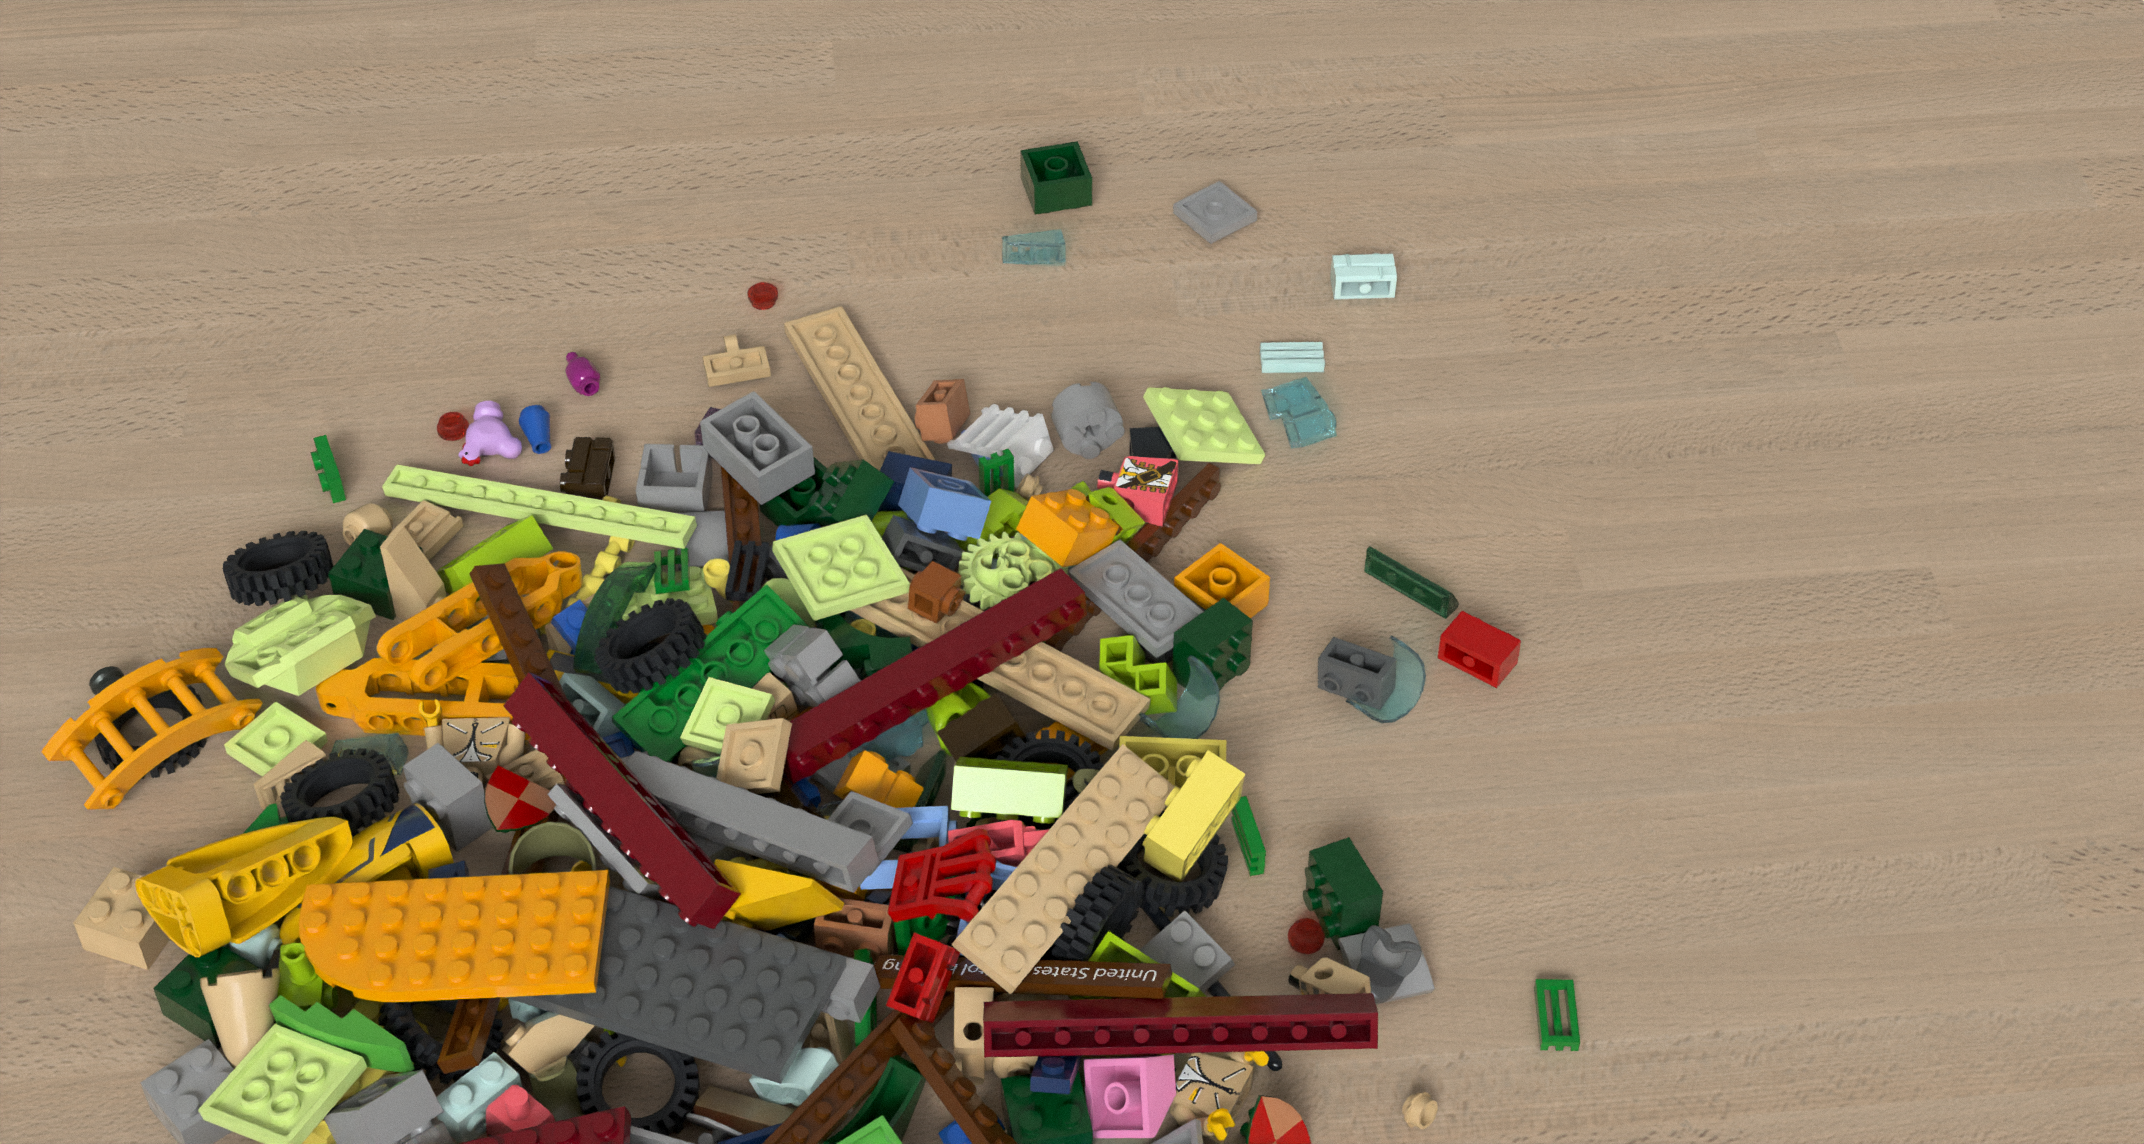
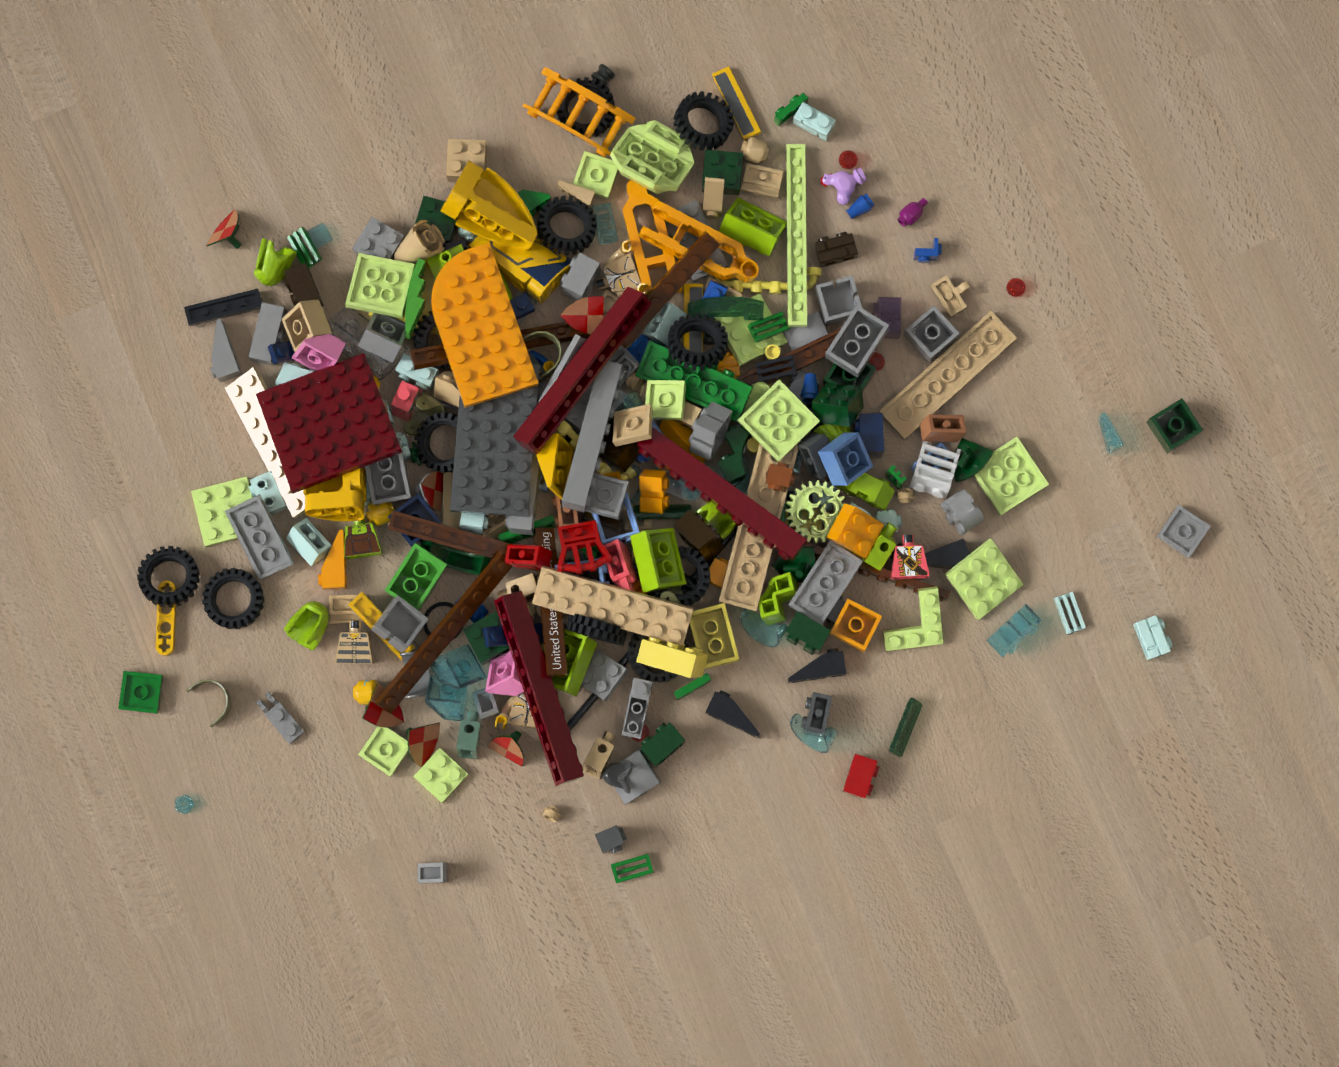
camera: 75 degrees right, 35 degrees up
(224, 540) = (734, 98): none -> tile
(367, 444) = (814, 121): none -> light aqua brick
(655, 369) = (925, 255): none -> blue bracket
(789, 387) = (931, 334): none -> light grey brick
(1006, 390) = (971, 459): none -> dark green shield
(1046, 364) = (1010, 477): none -> yellowish green plate
(1083, 638) = (799, 567): none -> dark green shield
(1256, 917) = (637, 708): none -> light grey slope
(1264, 512) = (925, 635): none -> yellowish green plate
(1274, 655) = (825, 666): none -> black slope
(1315, 794) = (726, 710): none -> black slope
(1498, 1016) = (611, 839): none -> dark grey brick

